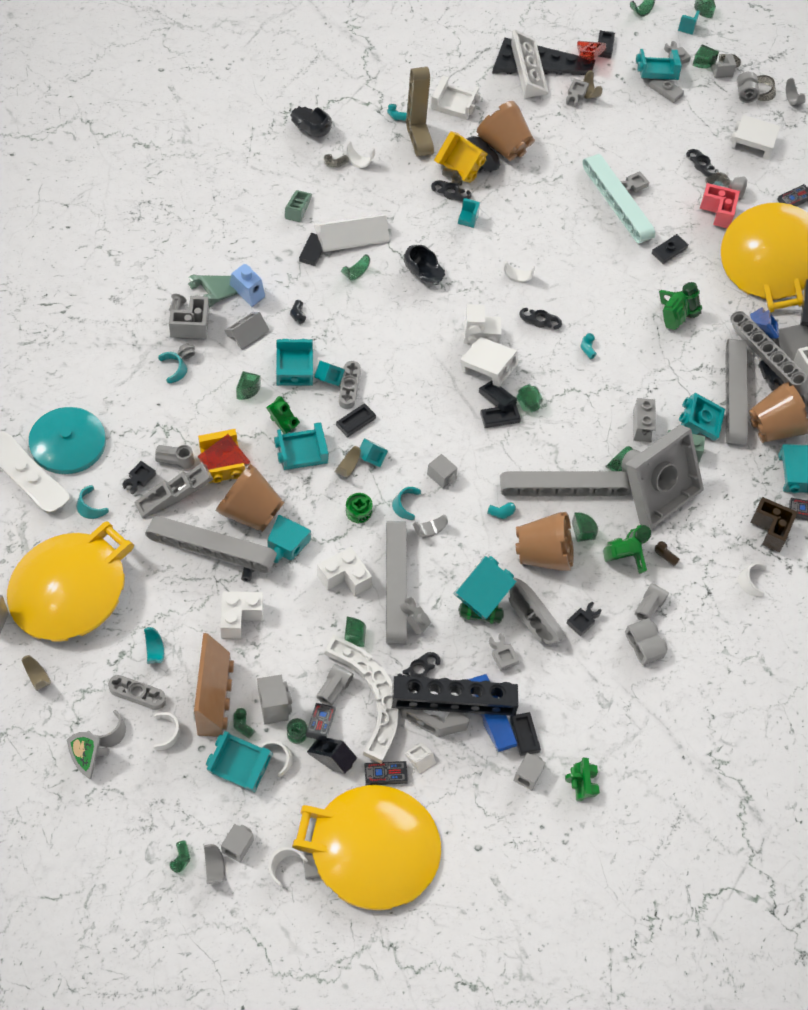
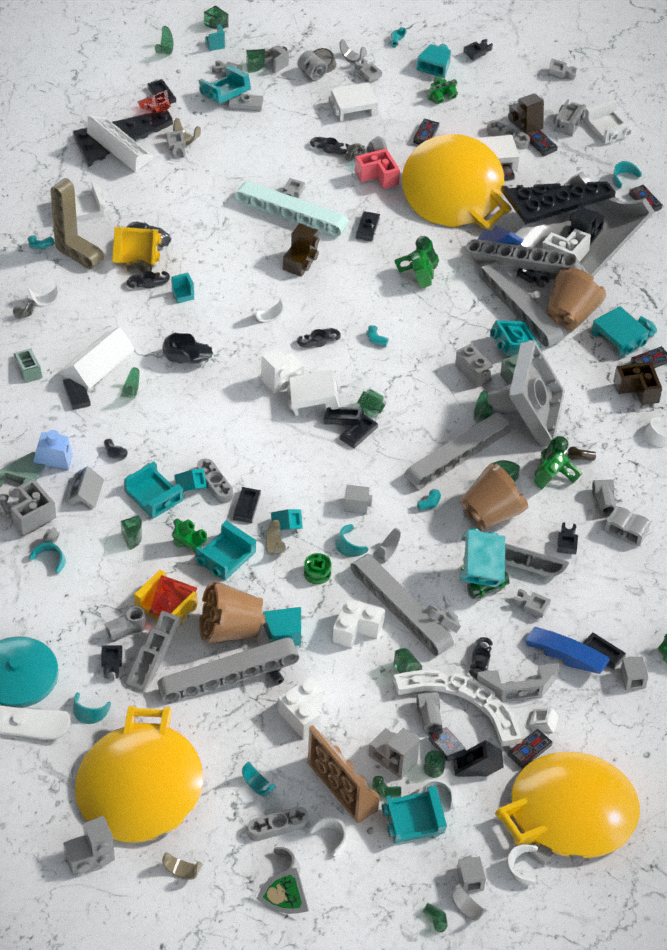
camera: 35 degrees left, 10 degrees down
(463, 703) = (534, 652): black brick -> none
(506, 131) = (157, 204): medium nougat cone -> none
(591, 238) = (302, 250): none -> dark brown brick
(794, 118) = (369, 72): none -> light grey plate

